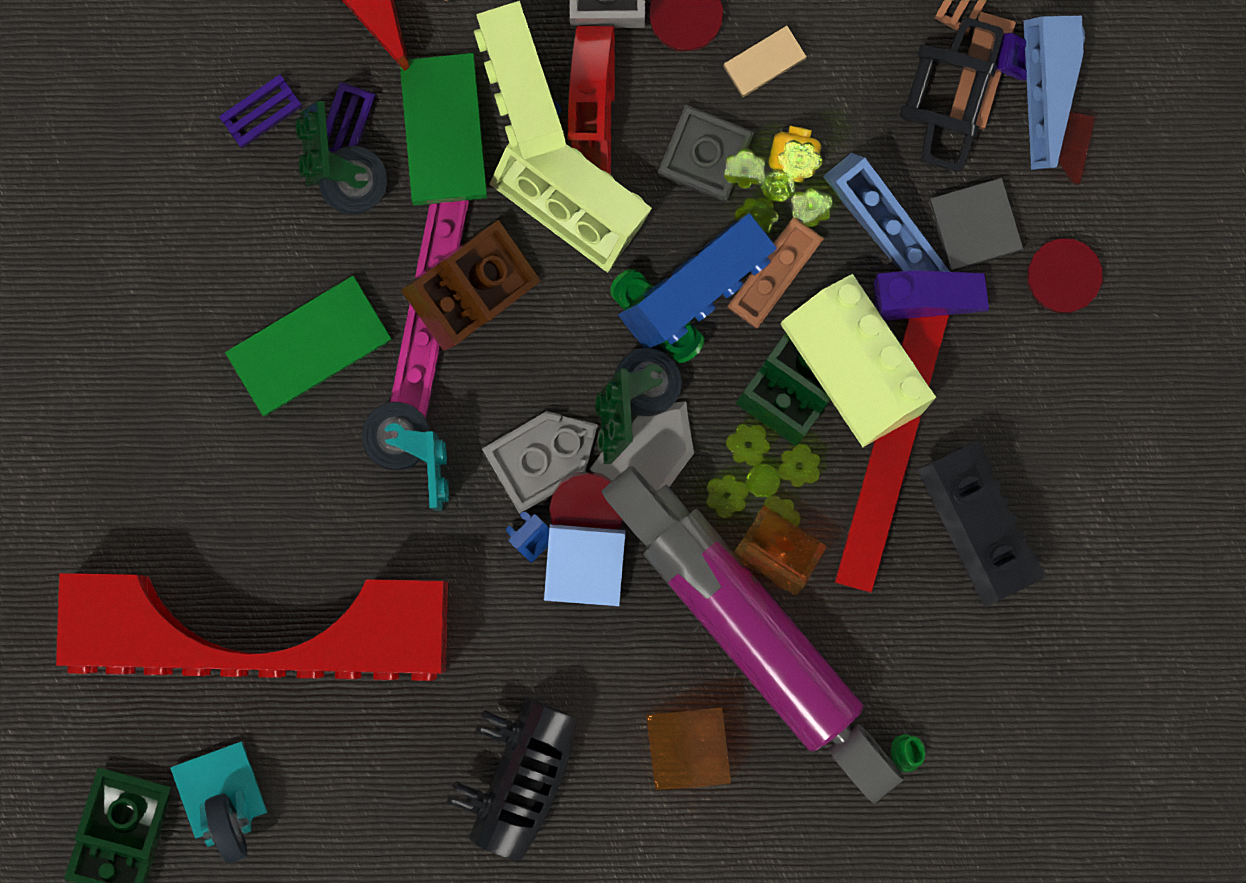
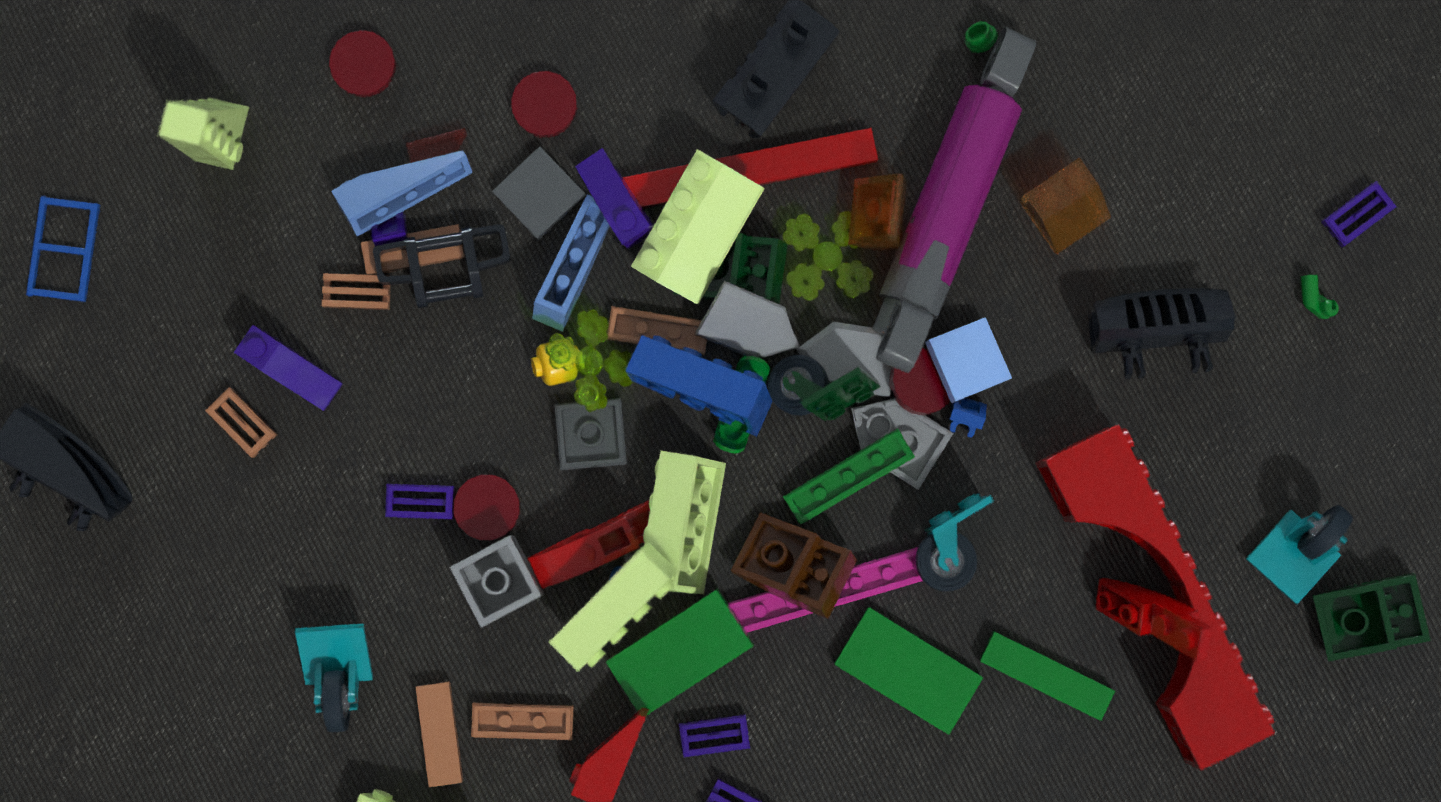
camera: 120 degrees left, 0 degrees up
(231, 480) = (1047, 676): none -> green tile
(237, 611) = (1155, 614): none -> red slope
(349, 177) = (758, 708): plate -> none
(530, 386) = (849, 476): none -> green tile
(734, 362) = (747, 323): none -> light grey tile
(764, 61) = (493, 425): tan tile -> none
(1199, 114) = (362, 63): none -> dark red tile

